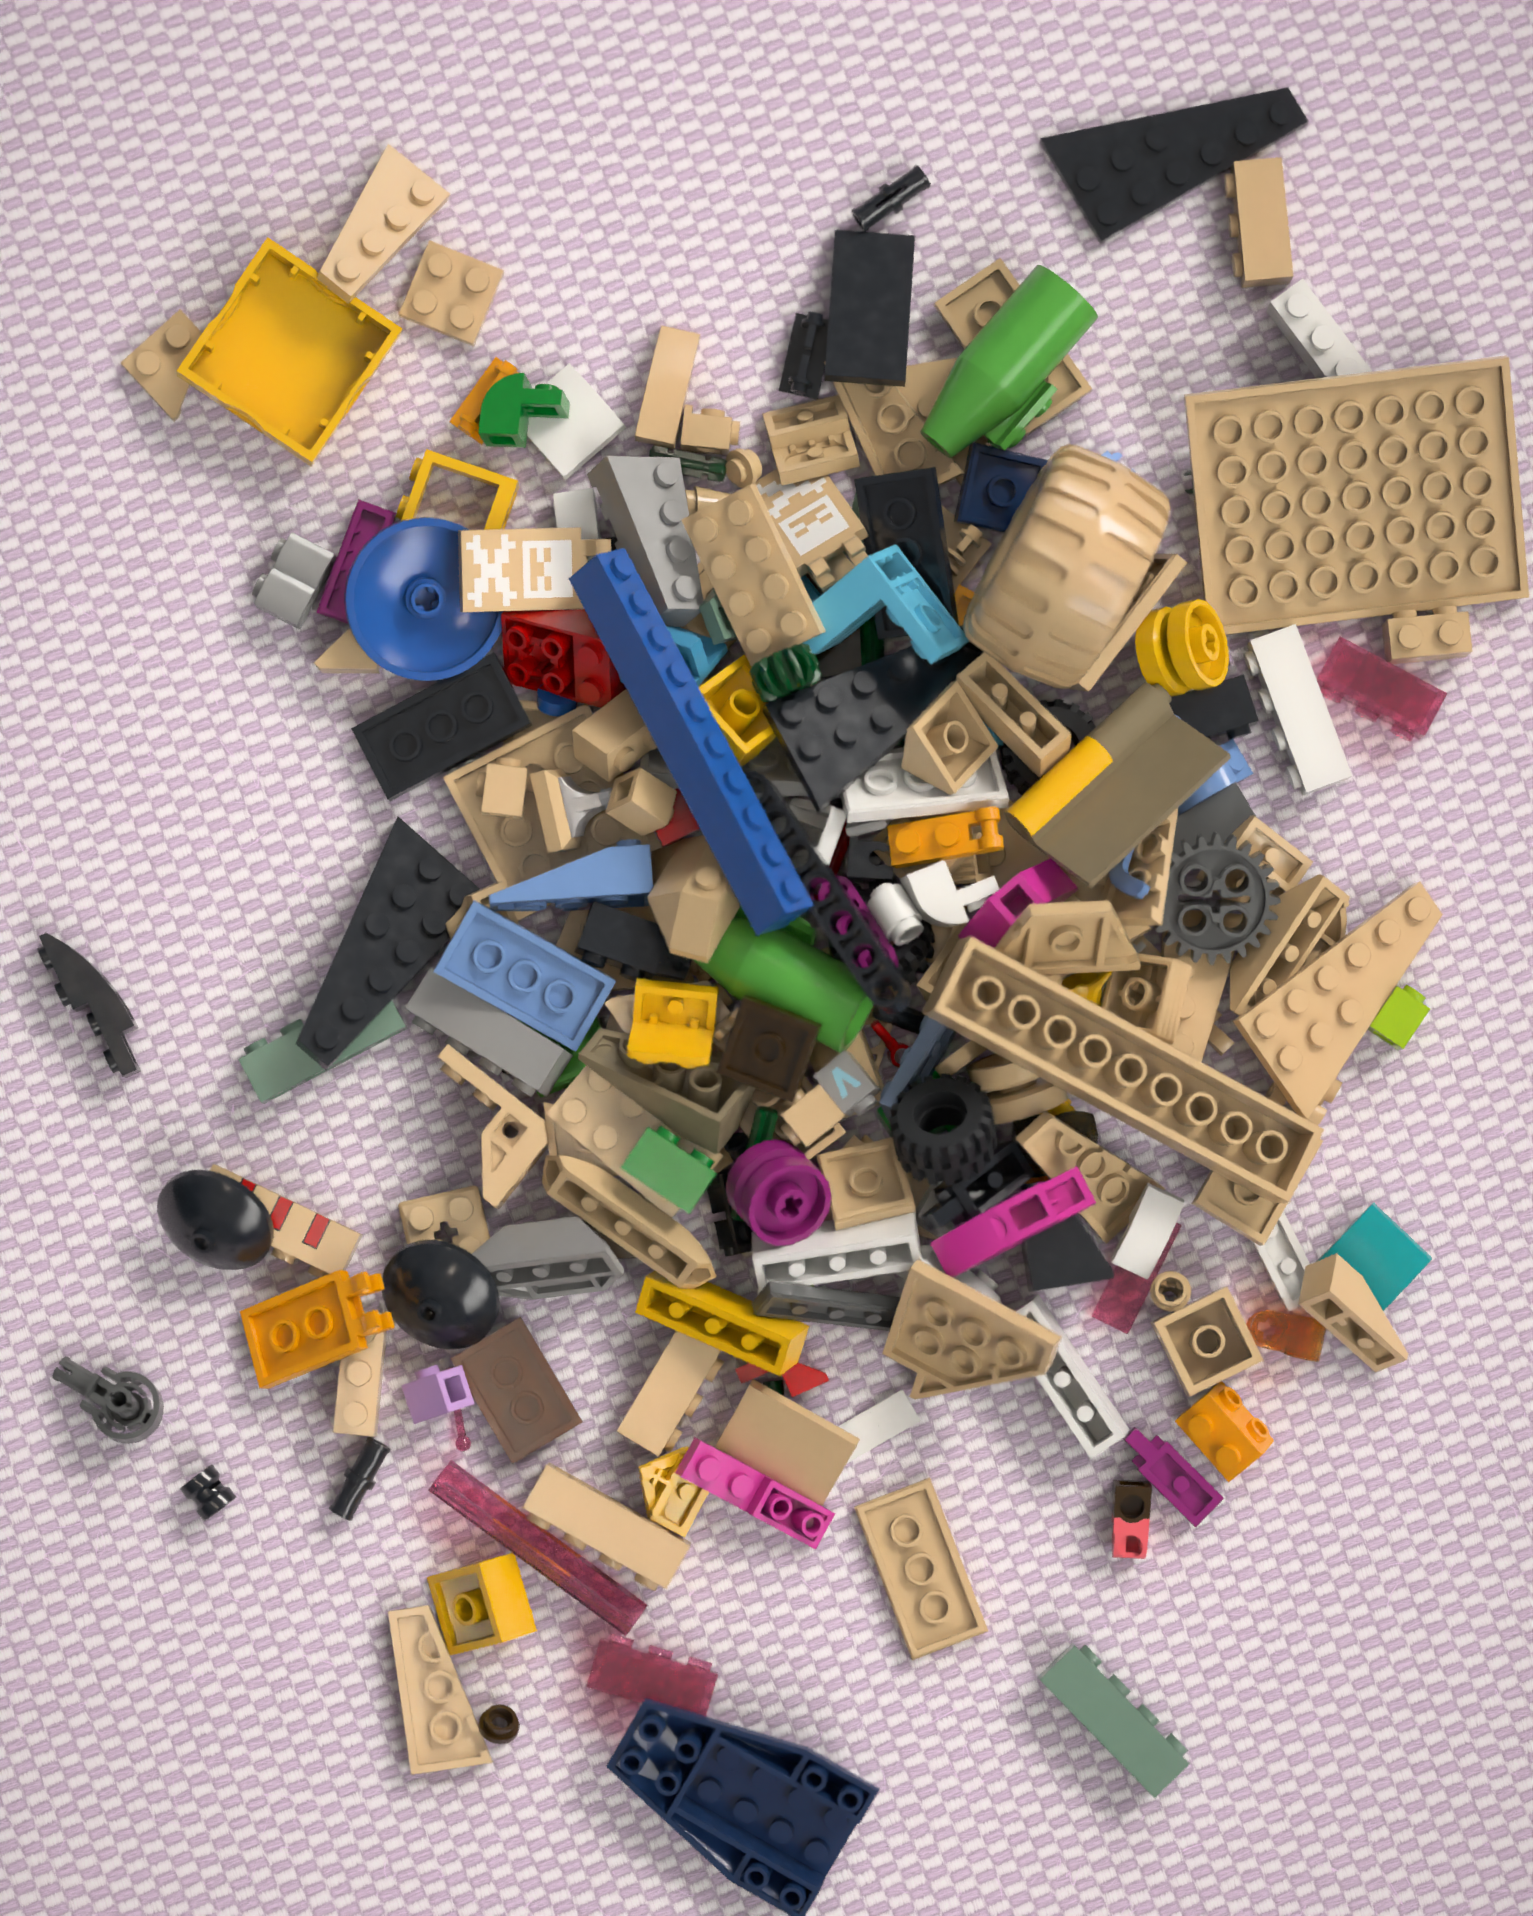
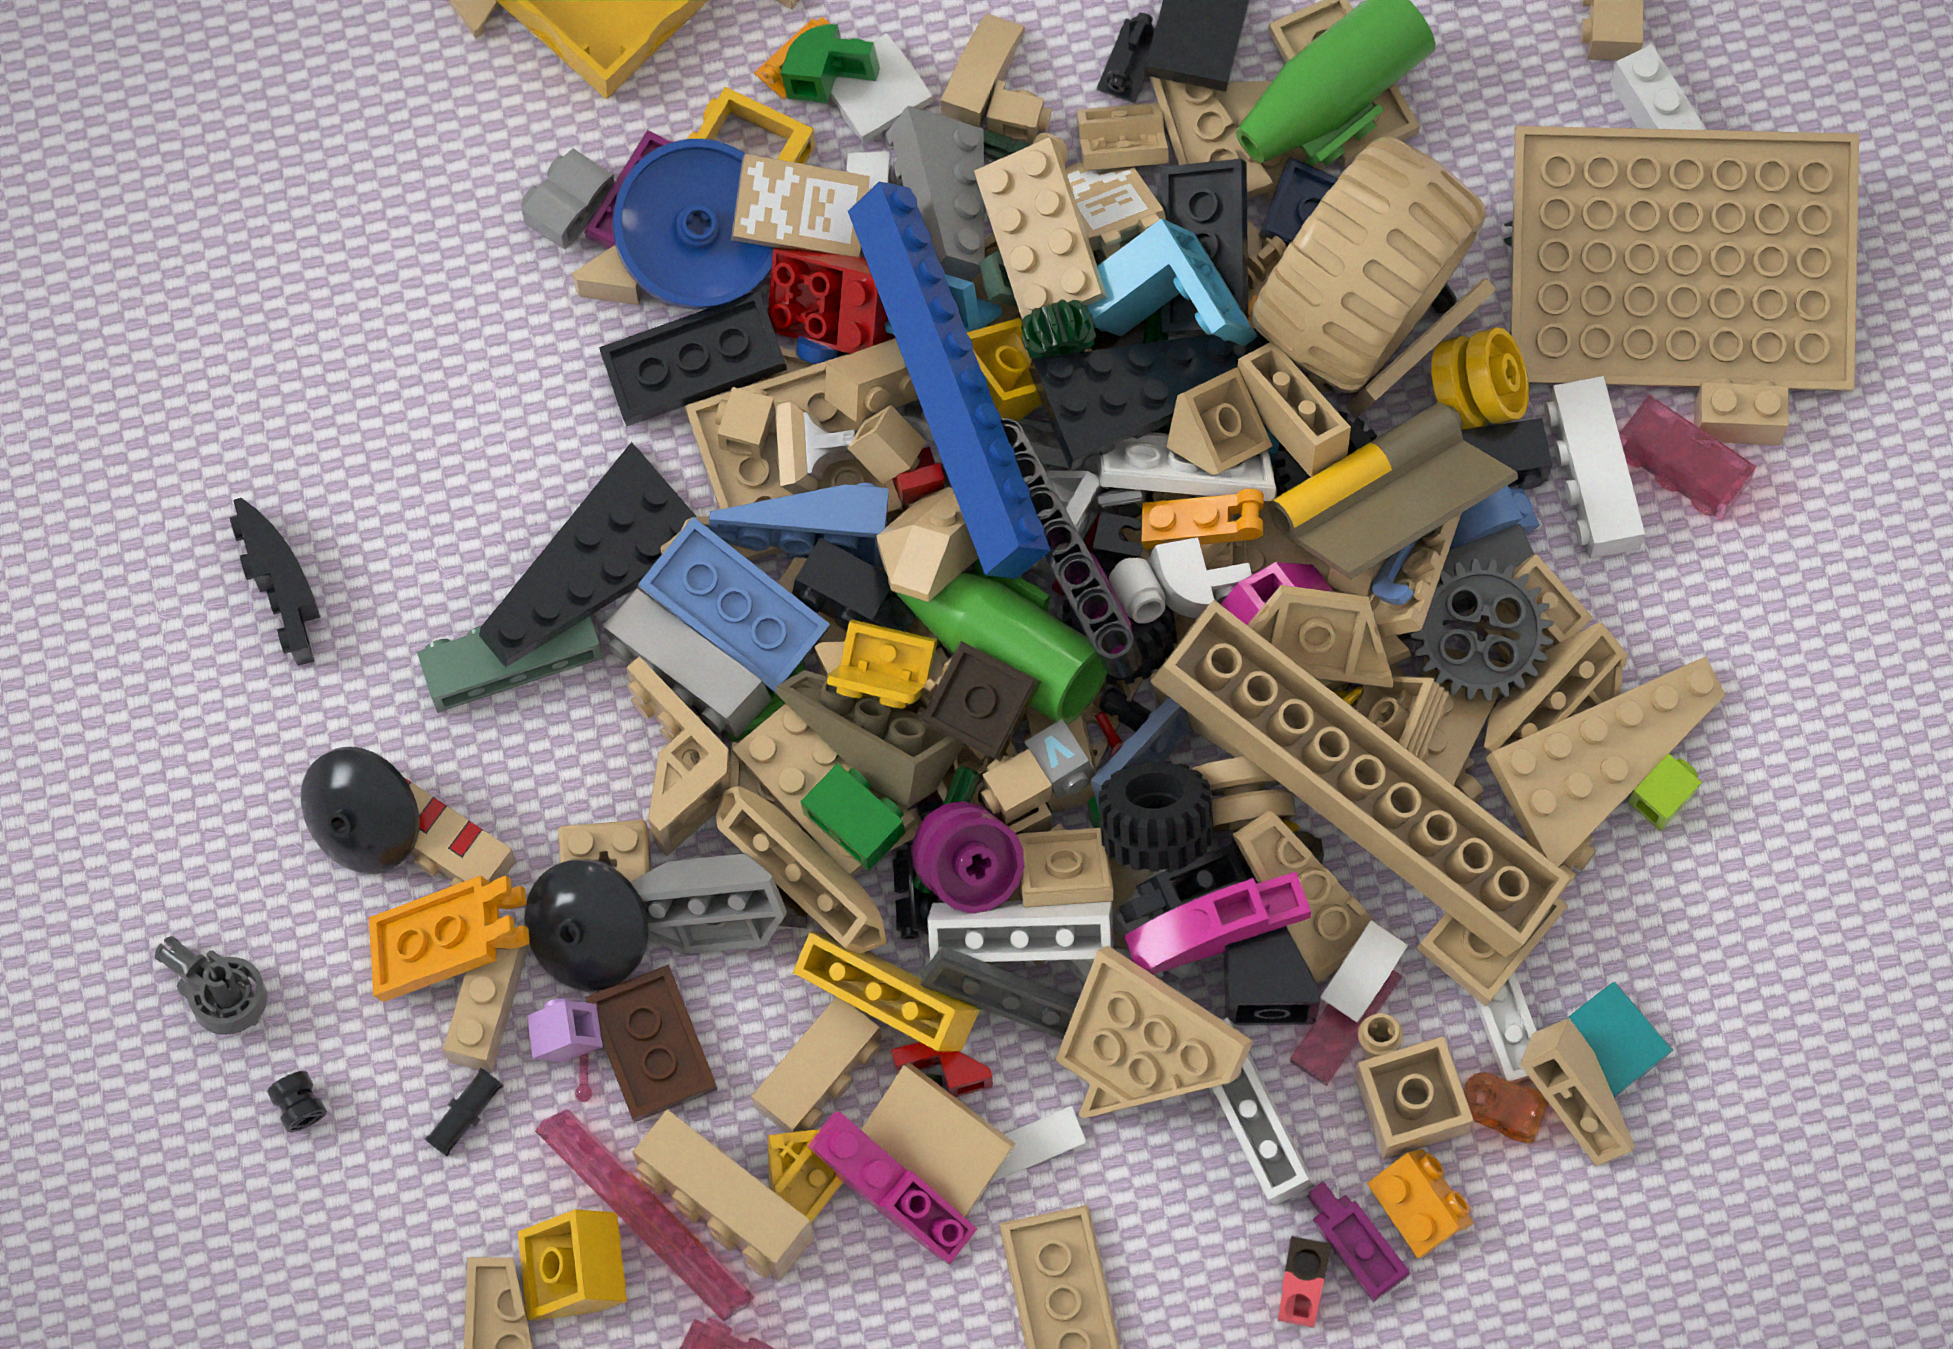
camera: 15 degrees right, 15 degrees down
(960, 1058) = (1192, 753): tan tile -> none

